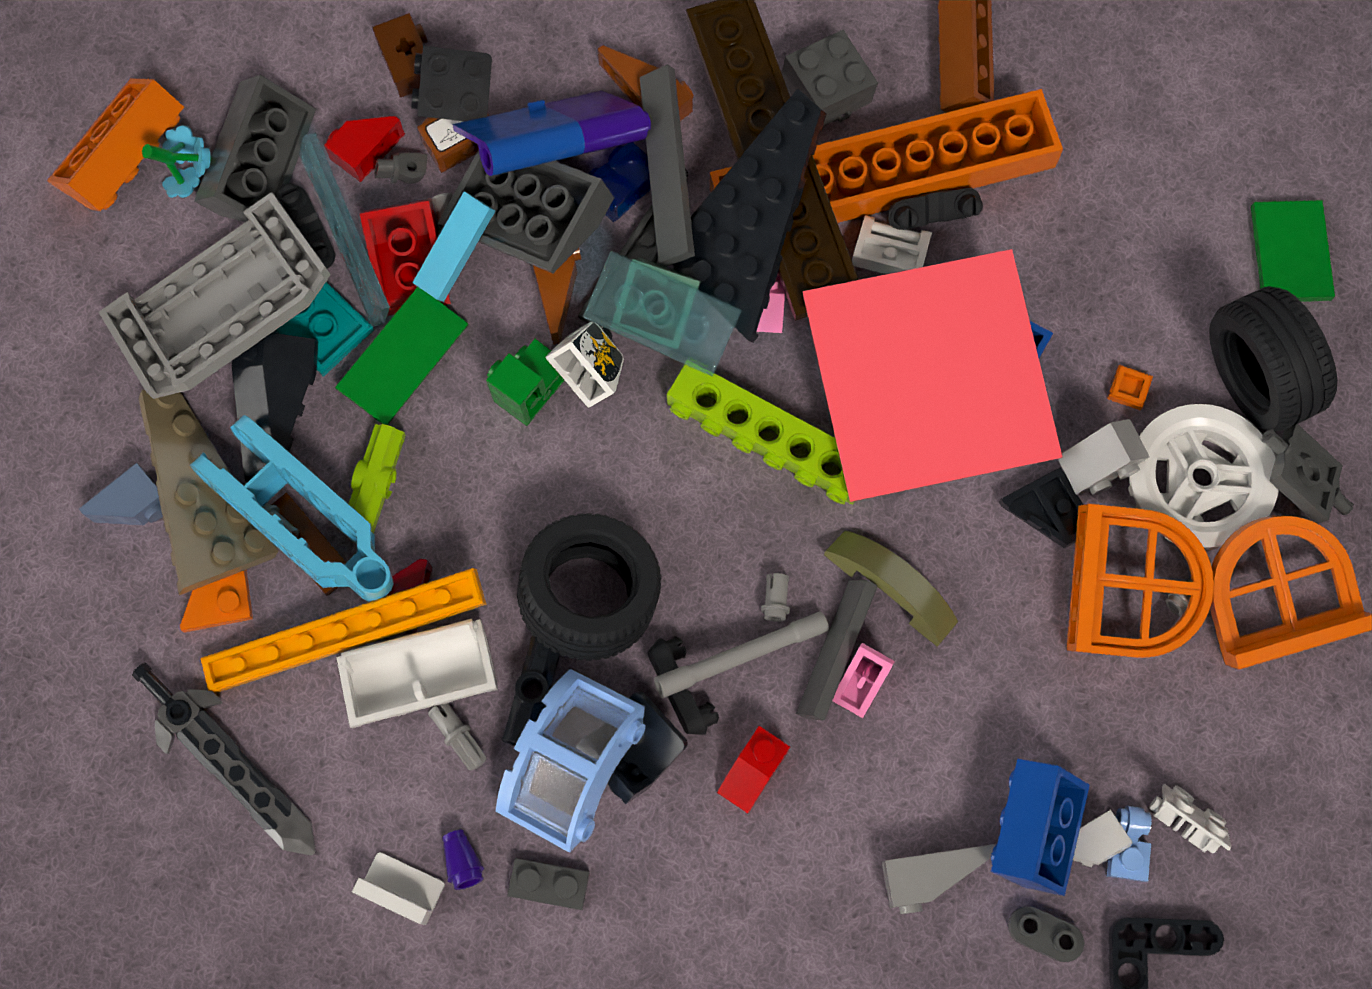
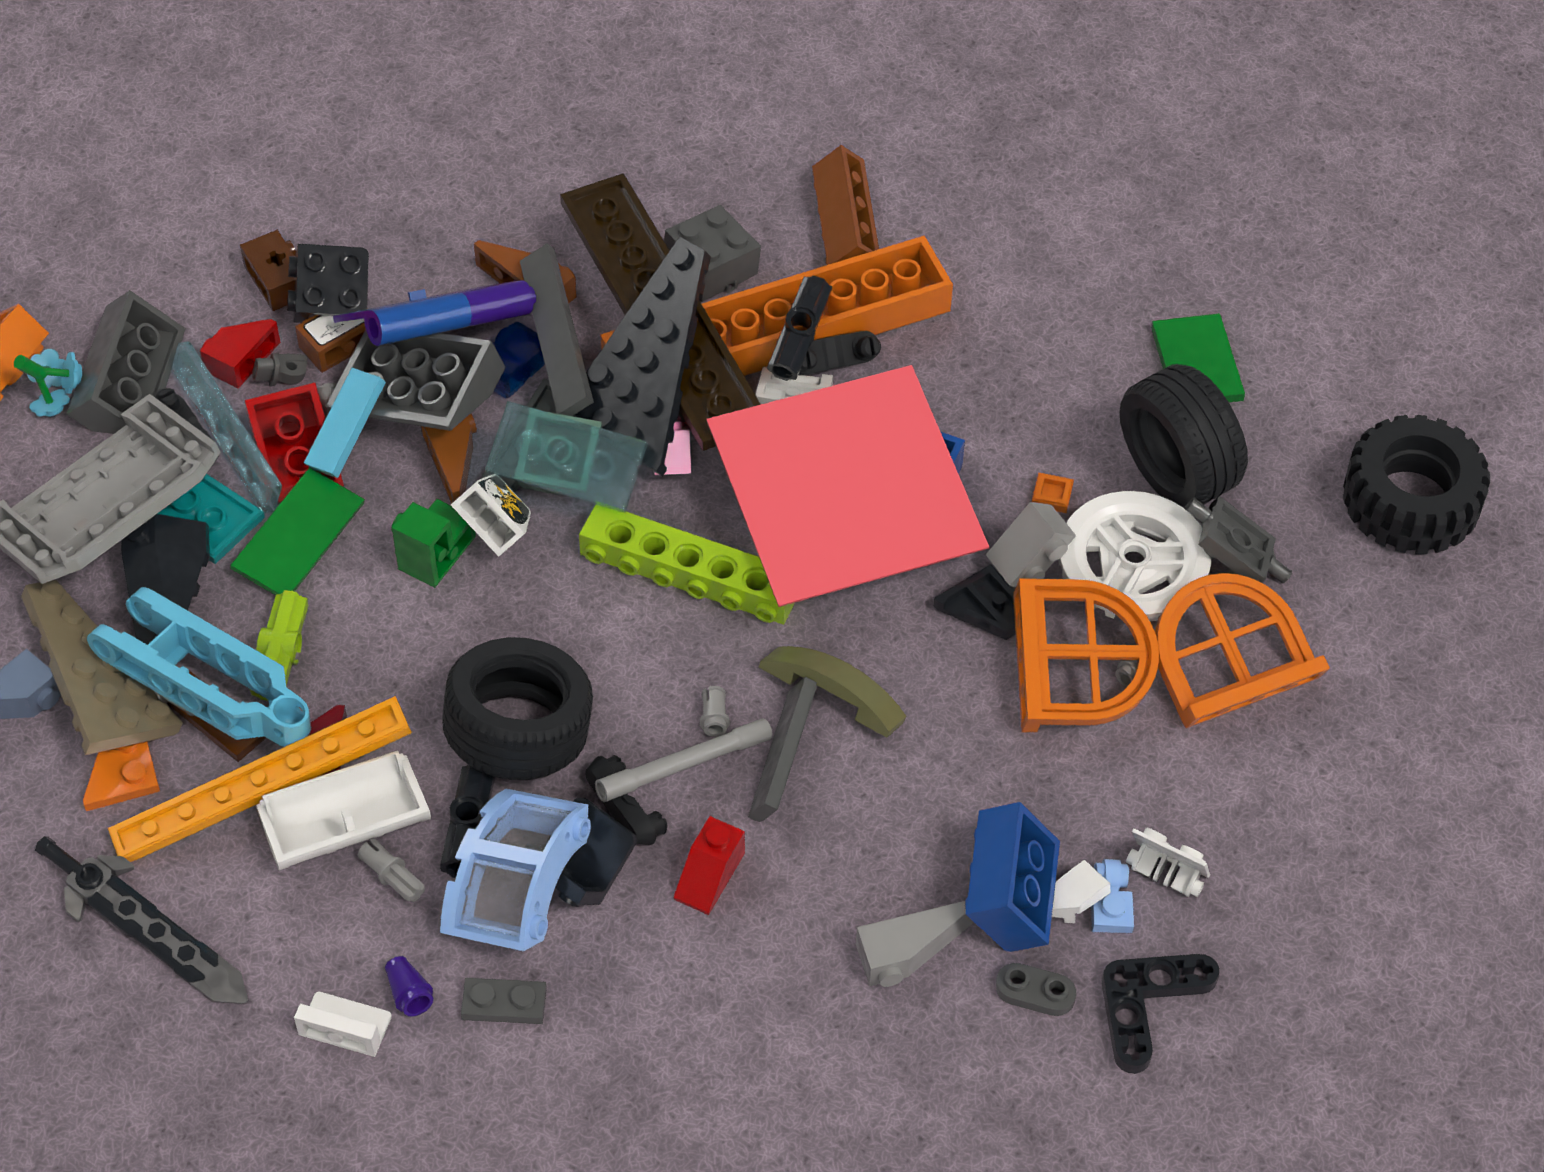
camera: 10 degrees left, 20 degrees down
(862, 680) = (814, 771): bright pink slope -> none
(914, 172) = (794, 343): none -> black piece

